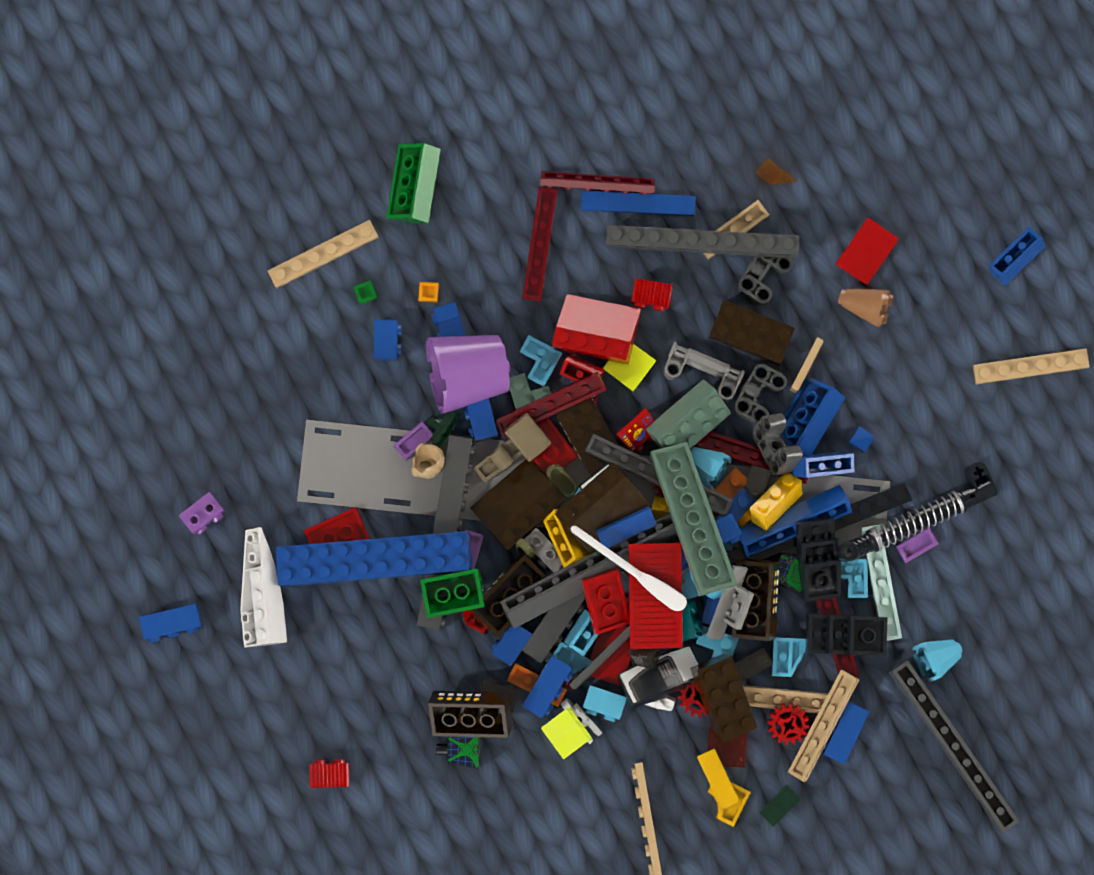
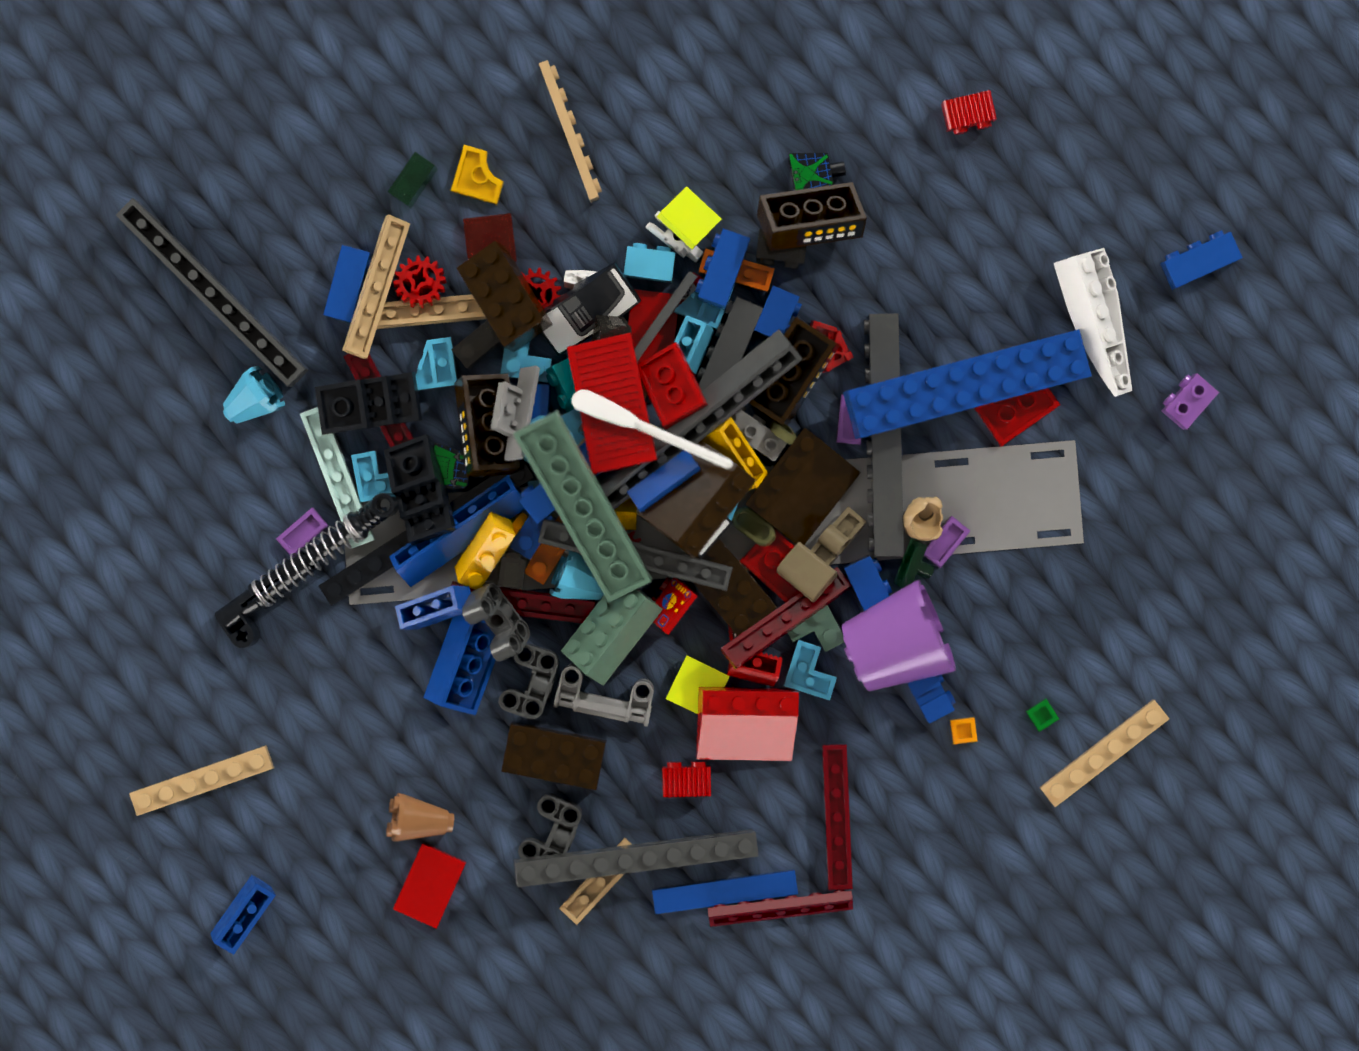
camera: 170 degrees right, 5 degrees up
(386, 340) = (1004, 660): blue brick -> none
(413, 183) = (1009, 863): green slope -> none
(453, 593) = (861, 358): green slope -> none
(718, 779) = (493, 198): yellow tile -> none
(773, 174) = (564, 960): clear orange slope -> none
(806, 365) = (478, 728): tan tile -> none
(861, 439) = (394, 649): blue slope -> none

